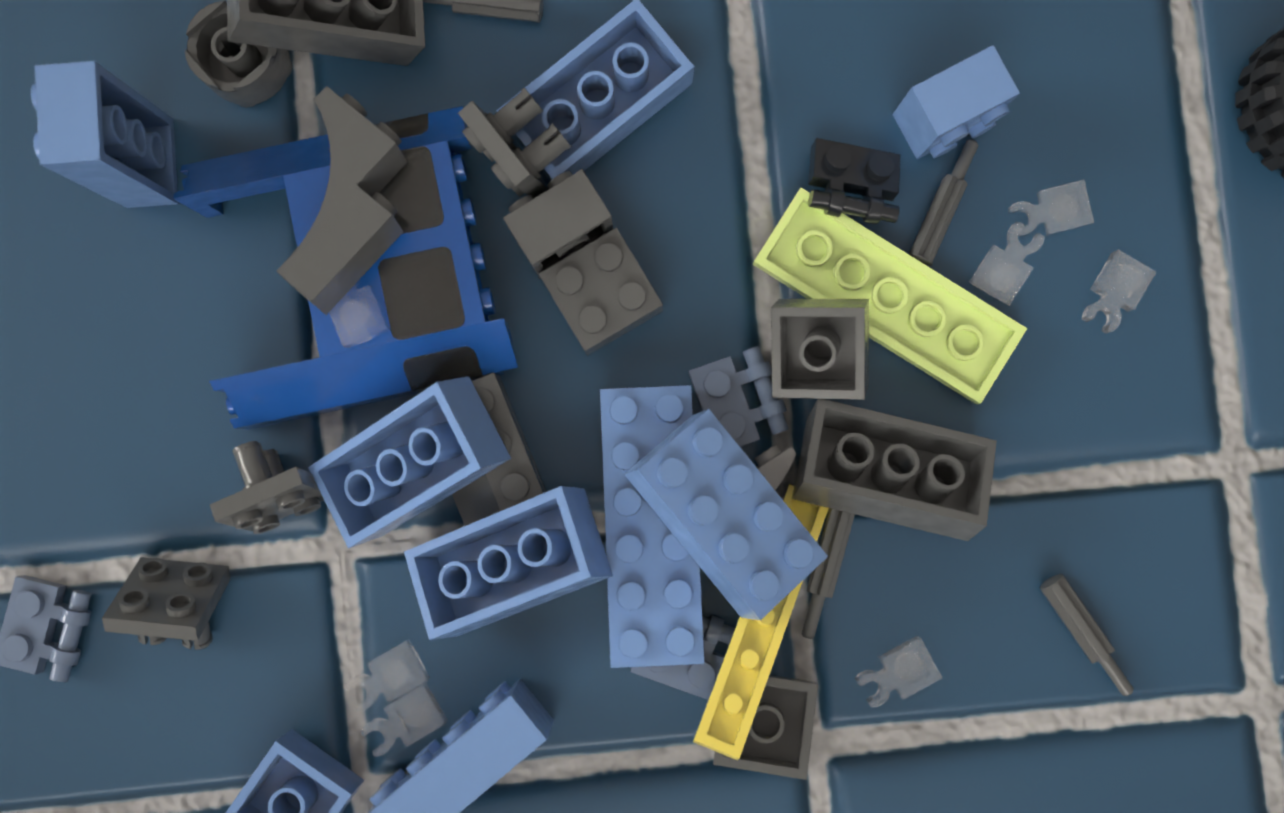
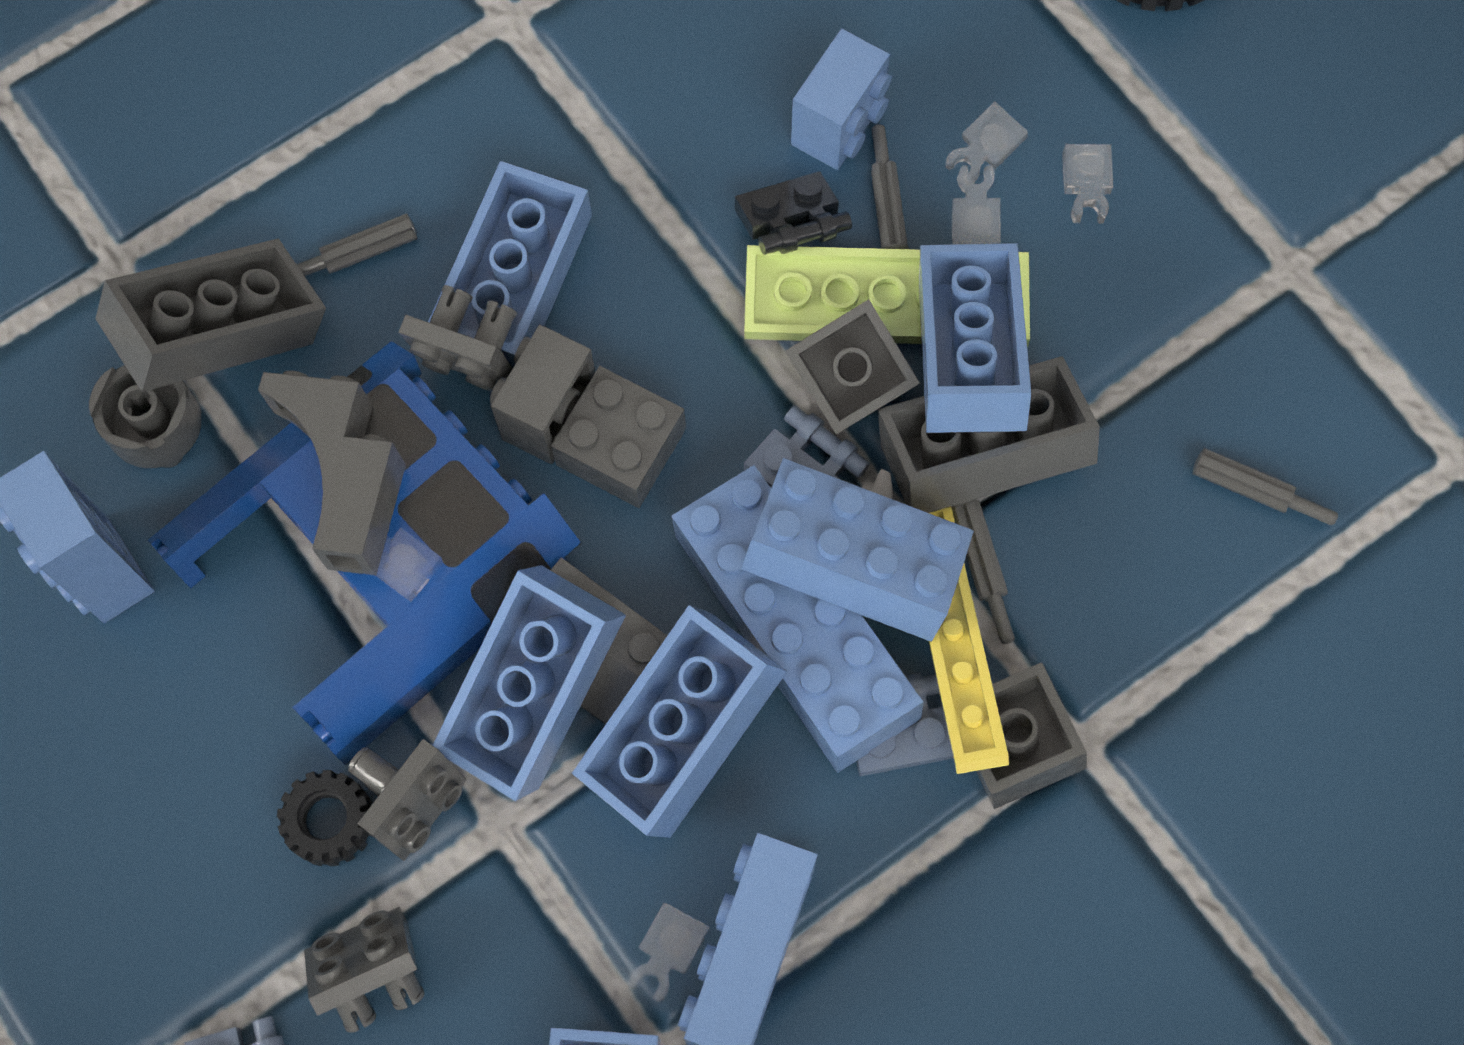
camera: 30 degrees left, 15 degrees down
(181, 466) = (300, 801): none -> black tyre
(392, 674) = (628, 915): clear plate -> none
(906, 669) = (1118, 618): clear plate -> none
(932, 390) = (973, 338): none -> medium blue brick

